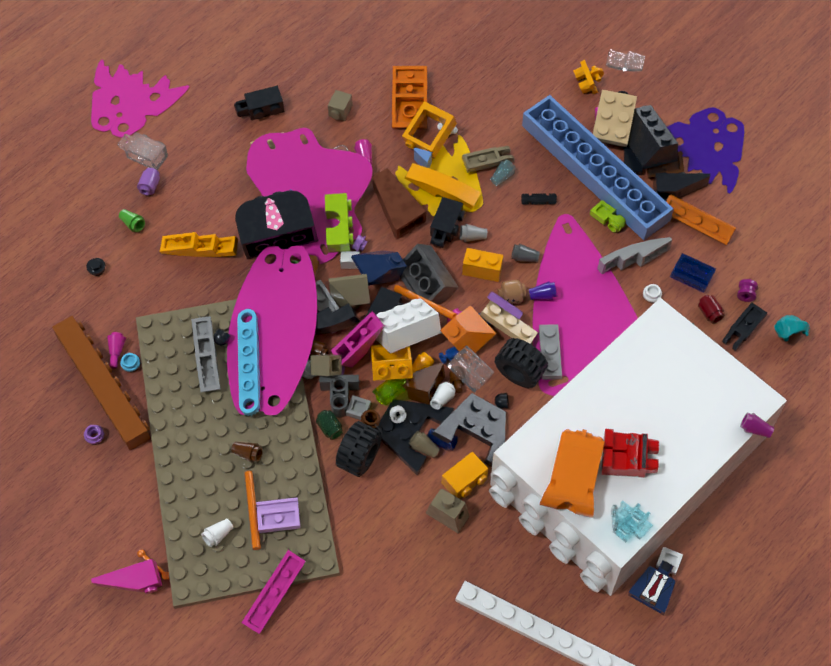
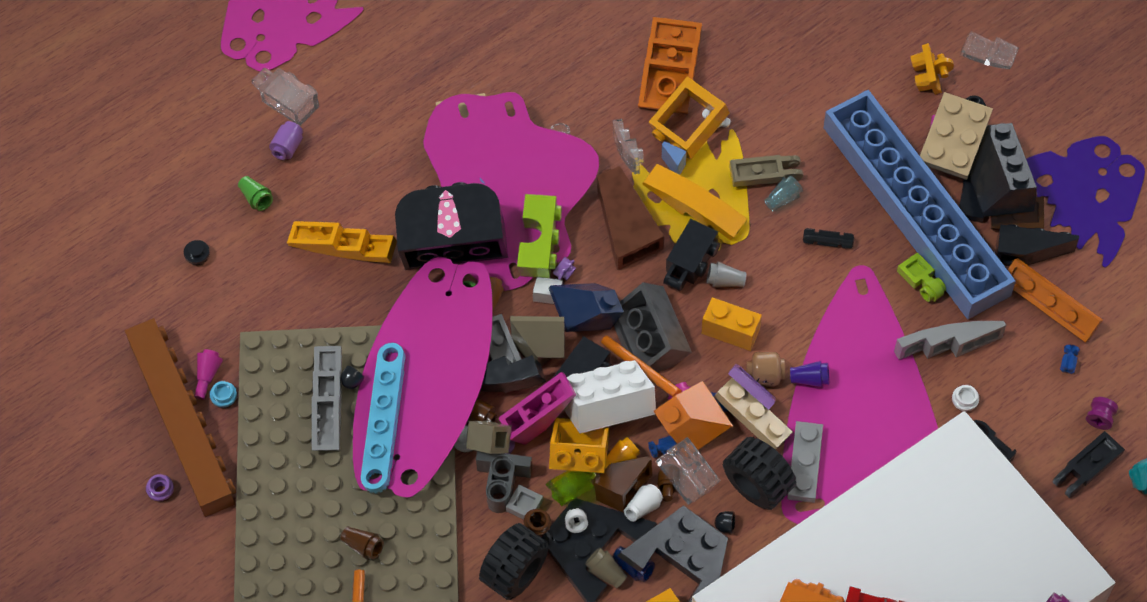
camera: 10 degrees right, 0 degrees up
(260, 103) = (458, 48): black brick -> none
(329, 424) = (480, 521): clear green brick -> none
(340, 105) = (569, 65): dark tan brick -> none
(364, 148) = (593, 134): dark pink cone -> none
(389, 155) = (627, 147): none -> clear slope
(524, 254) = (794, 316): dark grey cone -> none
(693, 272) = (1029, 376): clear blue plate -> none
(711, 309) = (1045, 432): dark red brick -> none
(718, 259) = (1069, 359): none -> blue piece

